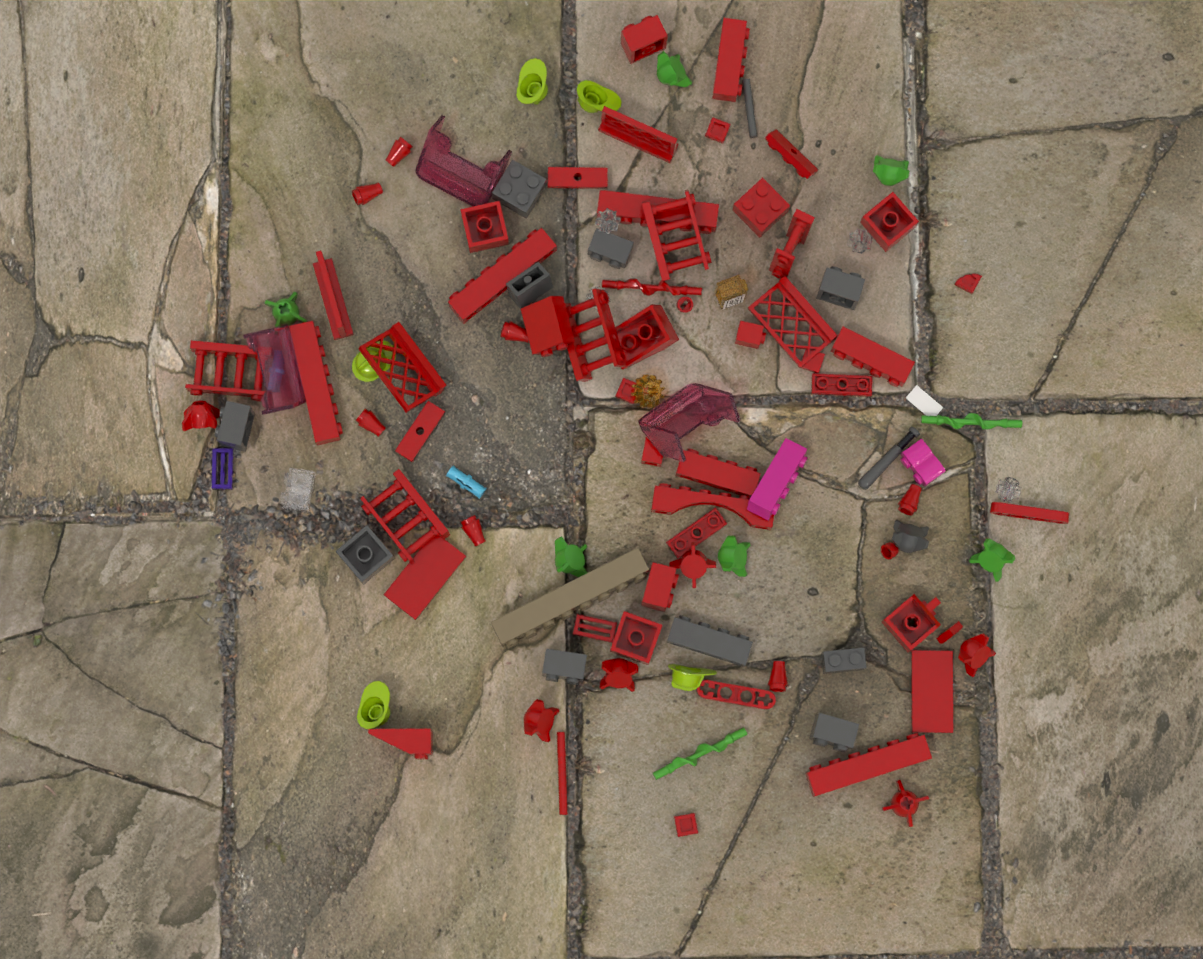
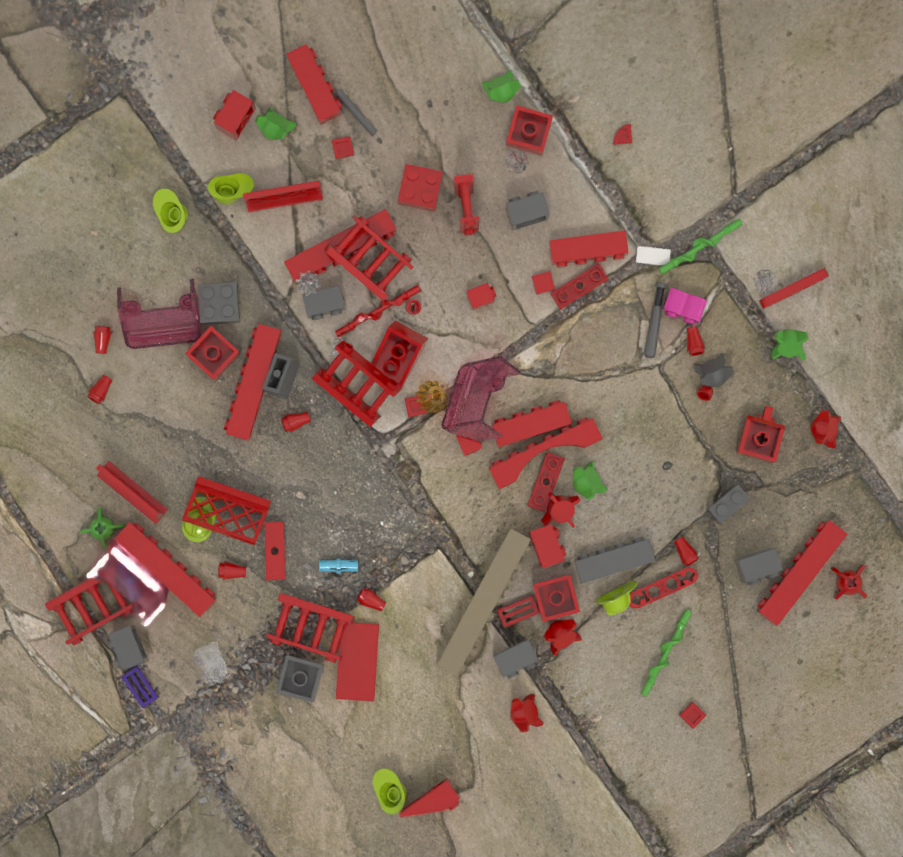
camera: 30 degrees left, 5 degrees up
(200, 415) = (94, 658): red piece -> none
(548, 326) = (318, 399): red brick -> none
(562, 782) = (569, 740): red bar -> none
(569, 558) = (462, 571): bright green piece -> none
(590, 177) = (268, 255): red tile -> none
(731, 291) = (443, 272): clear yellow brick -> none
(777, 479) = (581, 397): dark pink brick -> none
(791, 154) = (414, 128): red tile -> none
(808, 315) = (515, 248): red fence -> none
(931, 691) = (812, 481): red tile -> none
(949, 632) = (795, 425): red tile -> none

